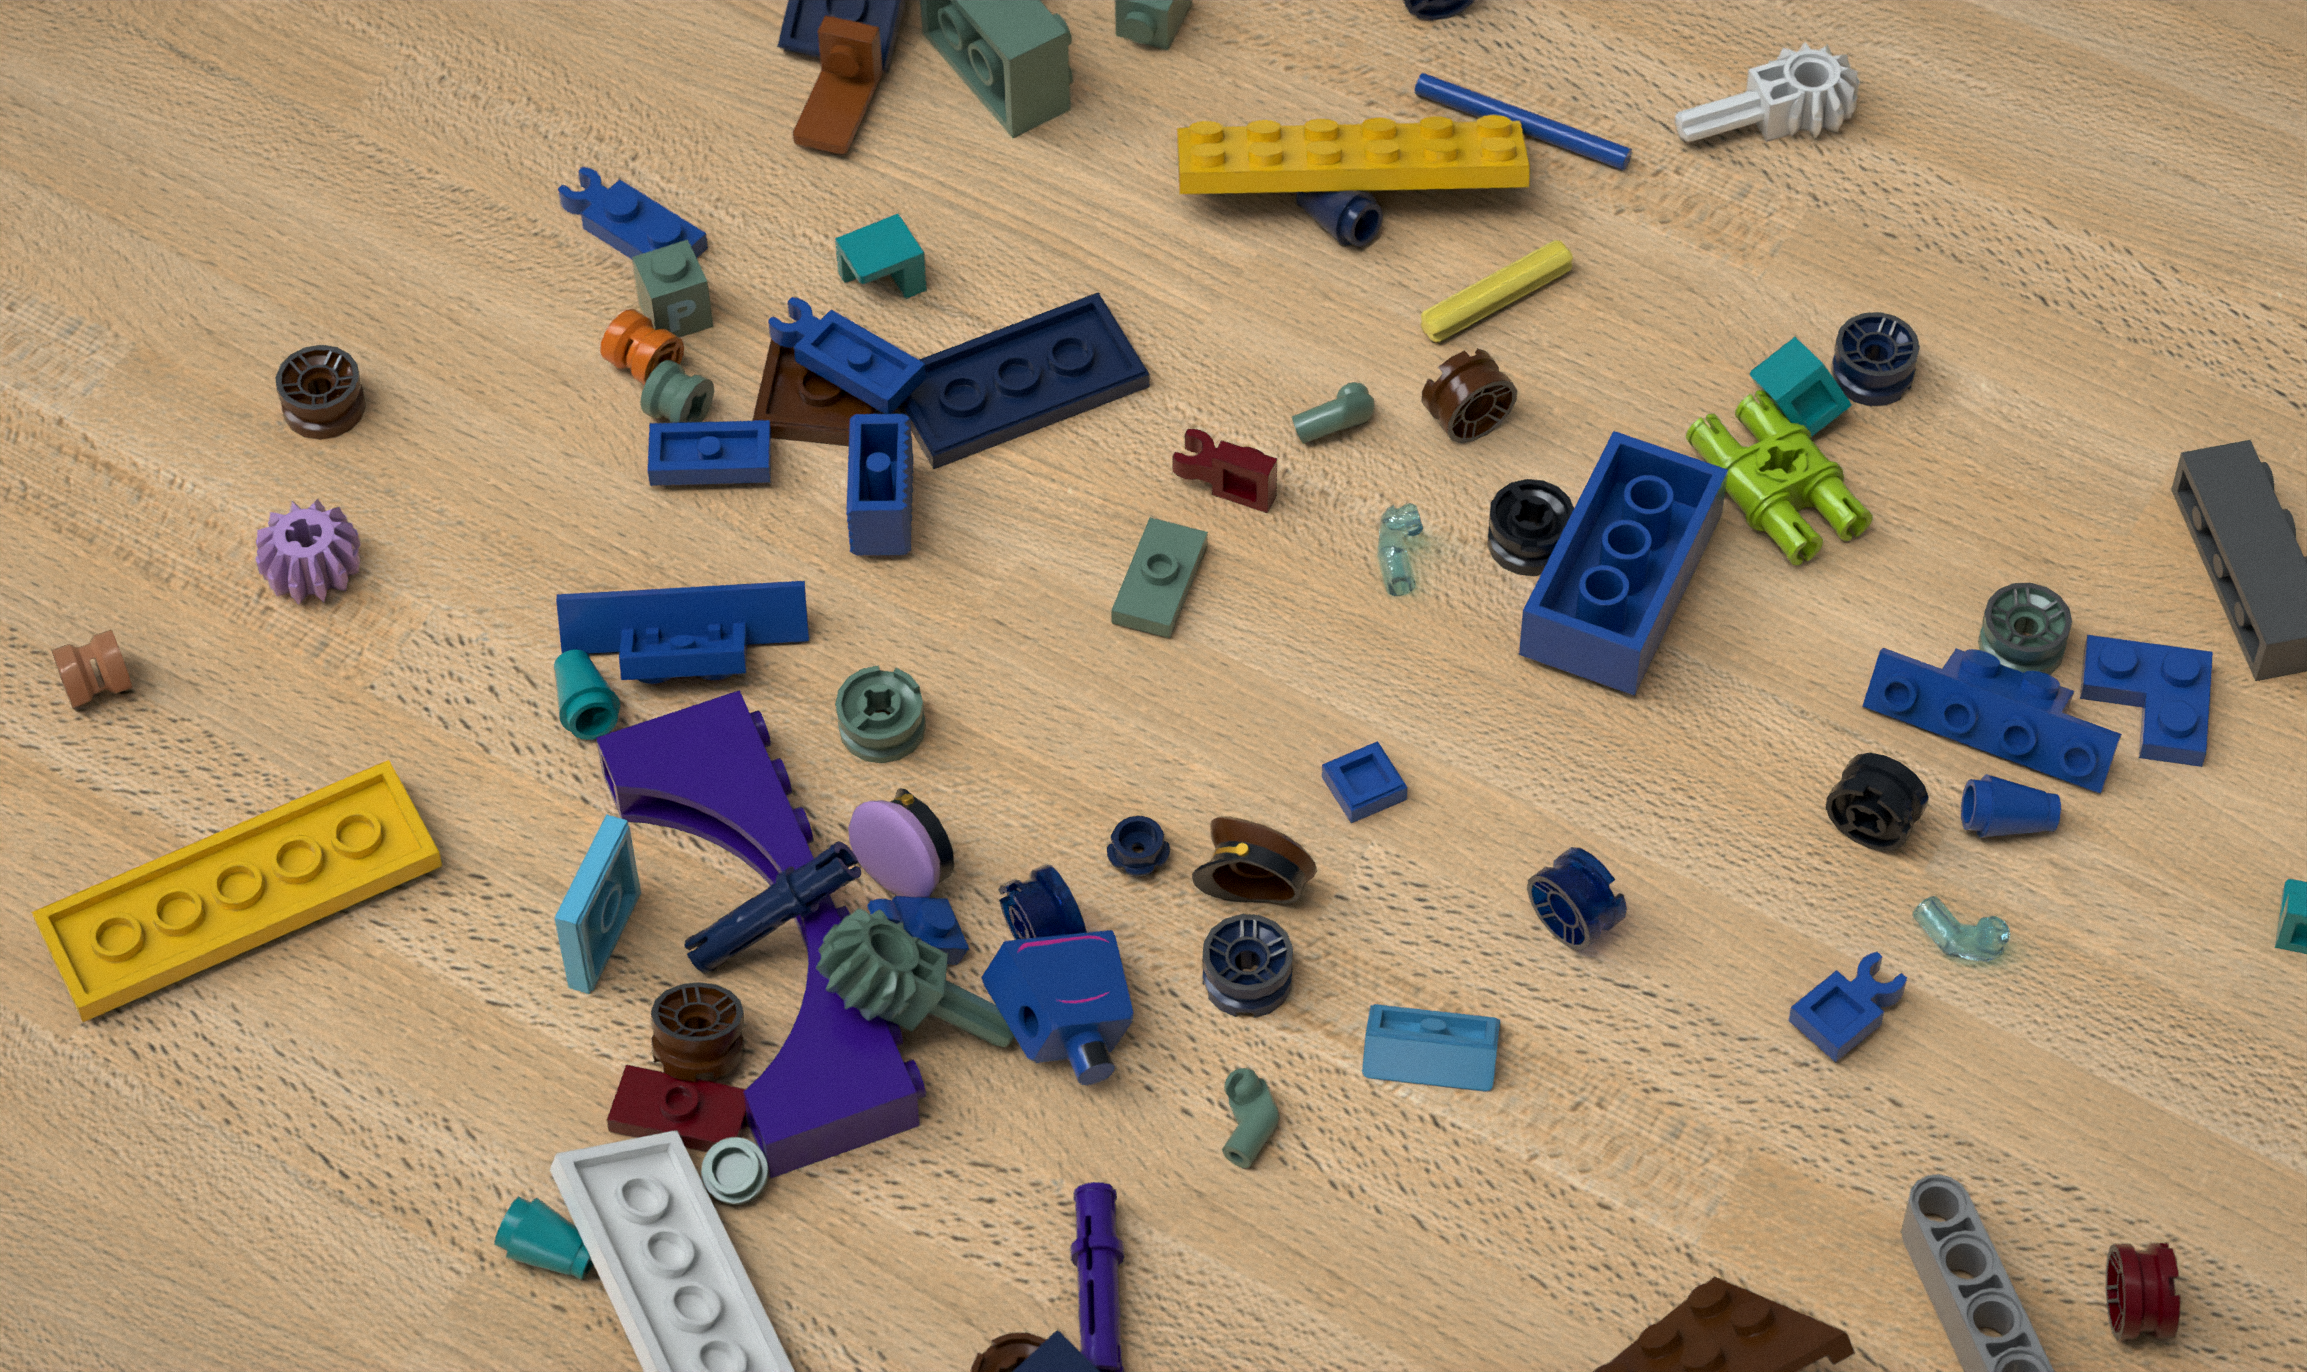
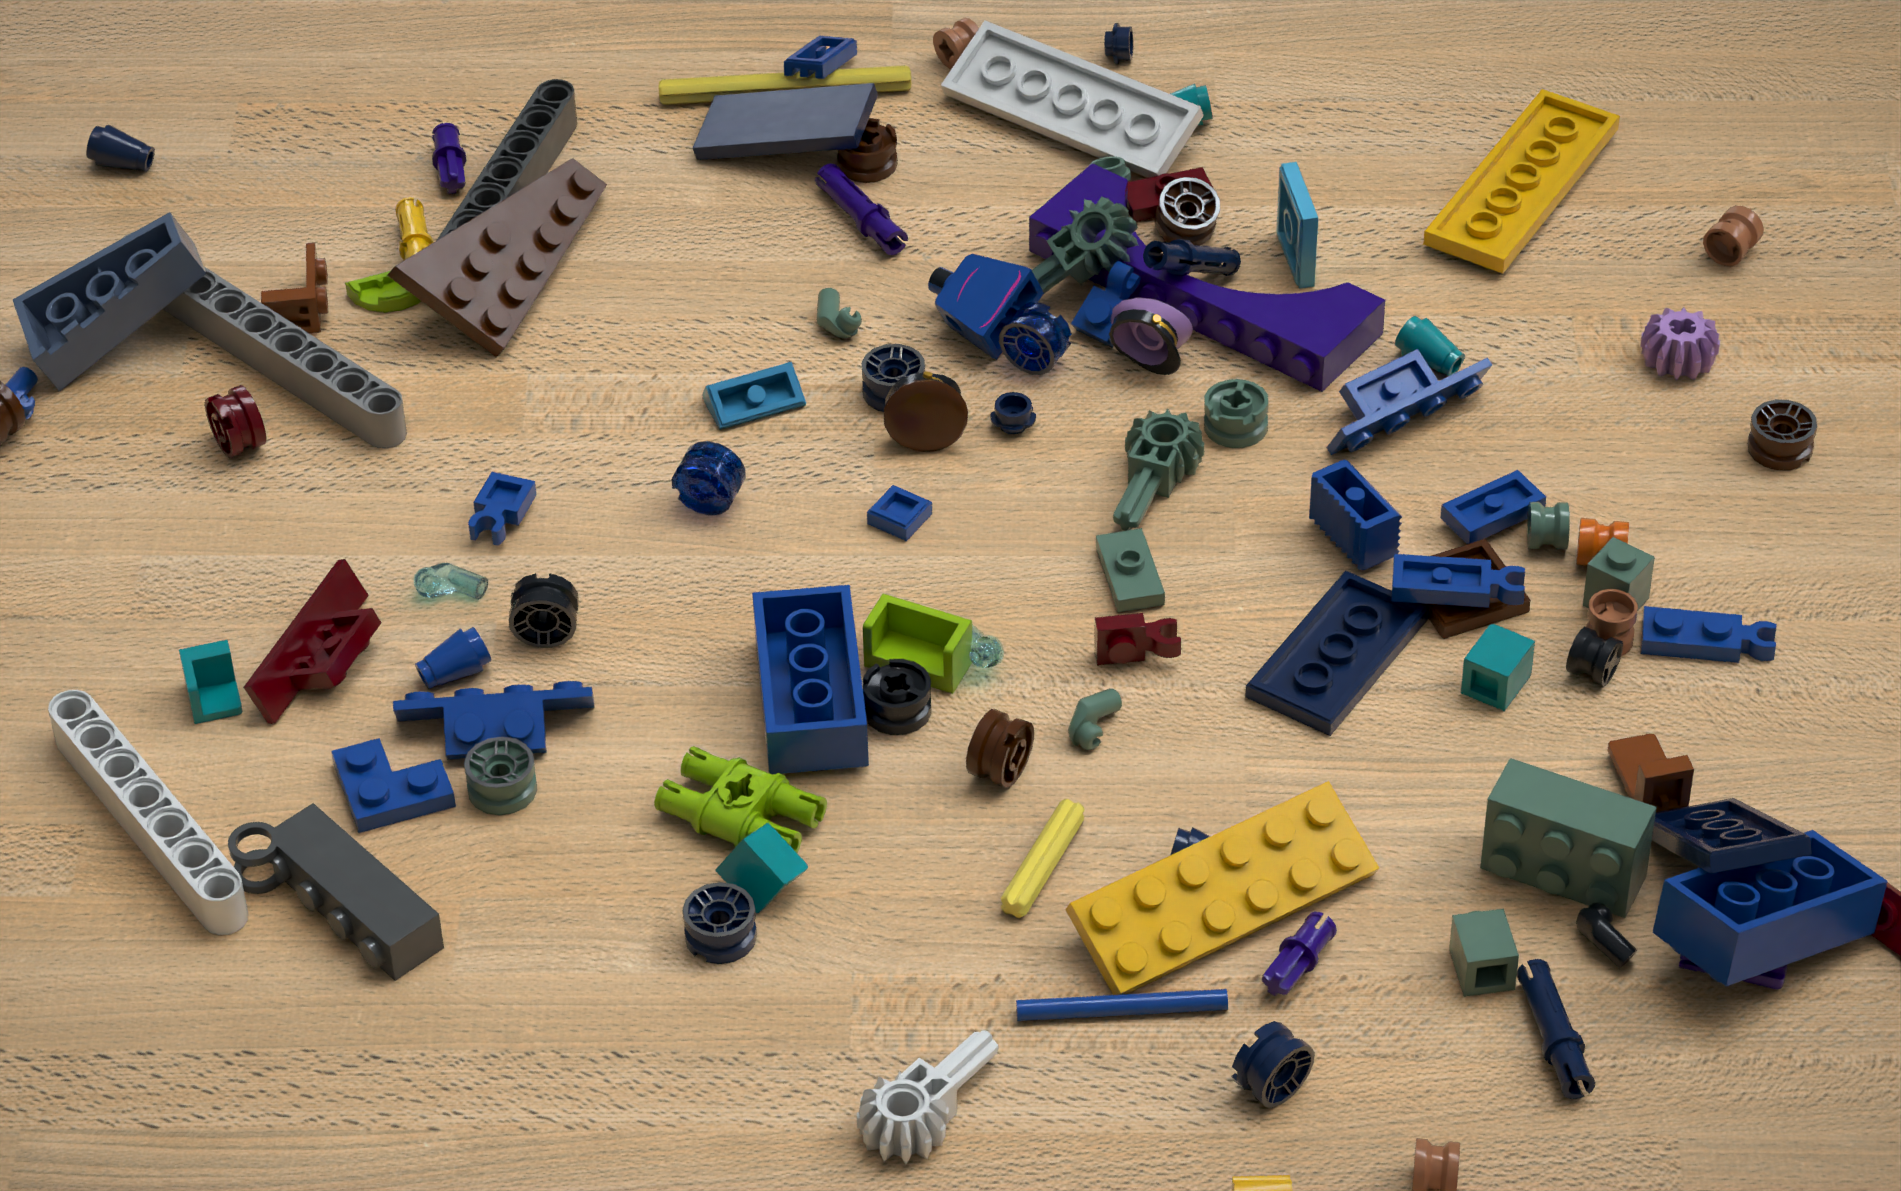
camera: 150 degrees right, 10 degrees down
(724, 256) = (1613, 615): none -> nougat wheel
(773, 231) = (1594, 656): none -> black wheel
(1032, 682) = (1158, 457): none -> sand green gear
(1322, 81) = (1298, 954): none -> dark purple axle
(1465, 572) = (920, 635): none -> lime panel
(2154, 890) = (316, 644): none -> dark red bracket

